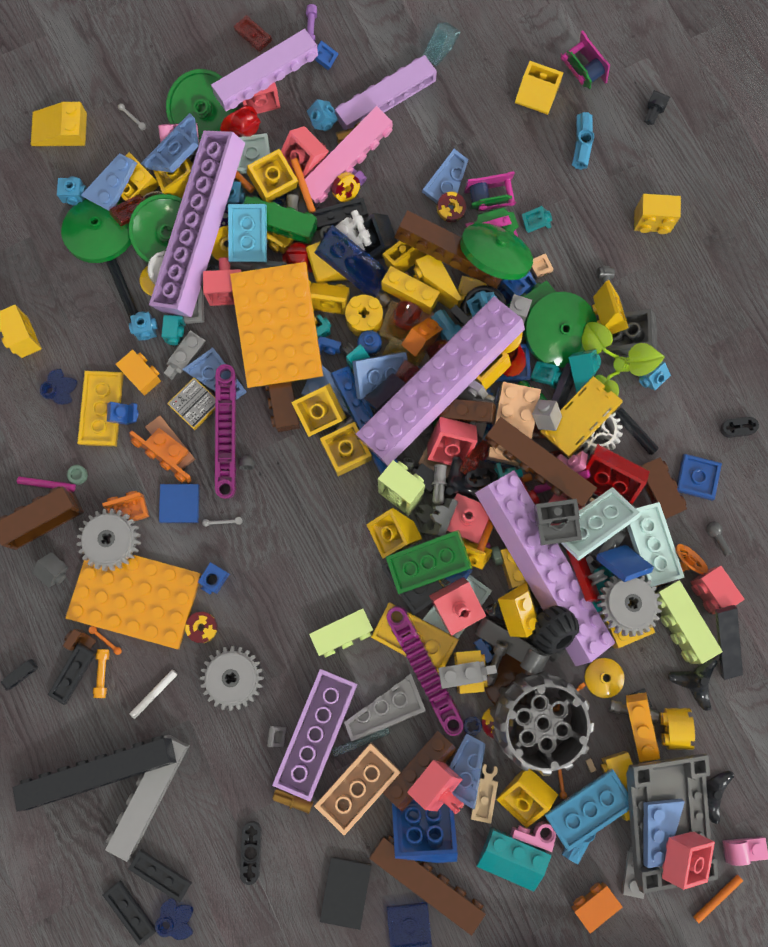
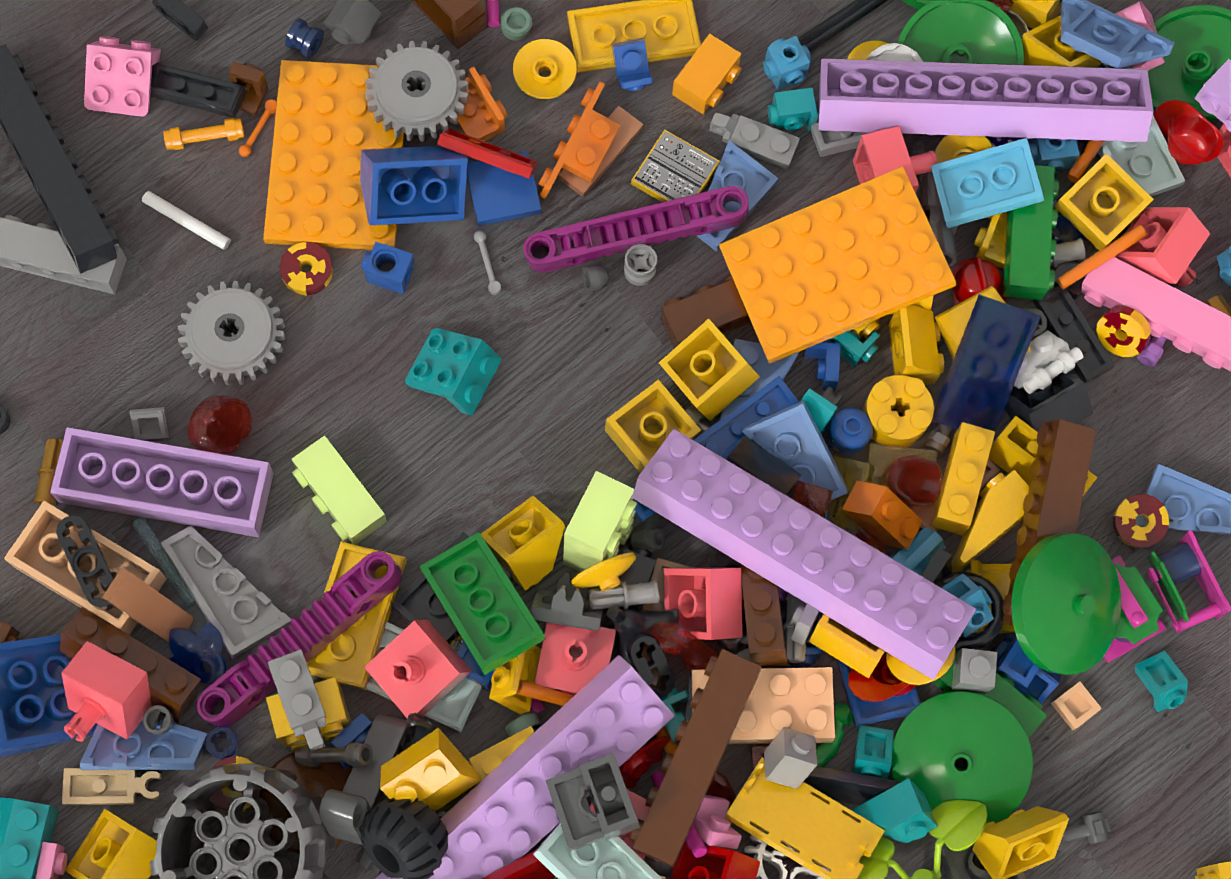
camera: 70 degrees right, 5 degrees down
(50, 718) = (119, 76): none -> bright pink bracket
(54, 601) = (304, 38): none -> dark blue wheel
(102, 463) = (544, 56): none -> yellow dish
(158, 506) = (487, 153): none -> red tile
(166, 553) = (413, 184): none -> blue slope
(242, 434) = (640, 258): none -> light grey wheel
(283, 553) = (454, 368): none -> teal bracket
(288, 694) = (219, 424): none -> clear red hair
(342, 784) = (68, 544): none -> black beam
(390, 754) = (146, 605): none -> nougat tile
(418, 733) = (193, 649): none -> clear blue plate
(429, 491) = (605, 573): none -> yellow dish
(453, 763) = (152, 718): none -> dark grey hinge

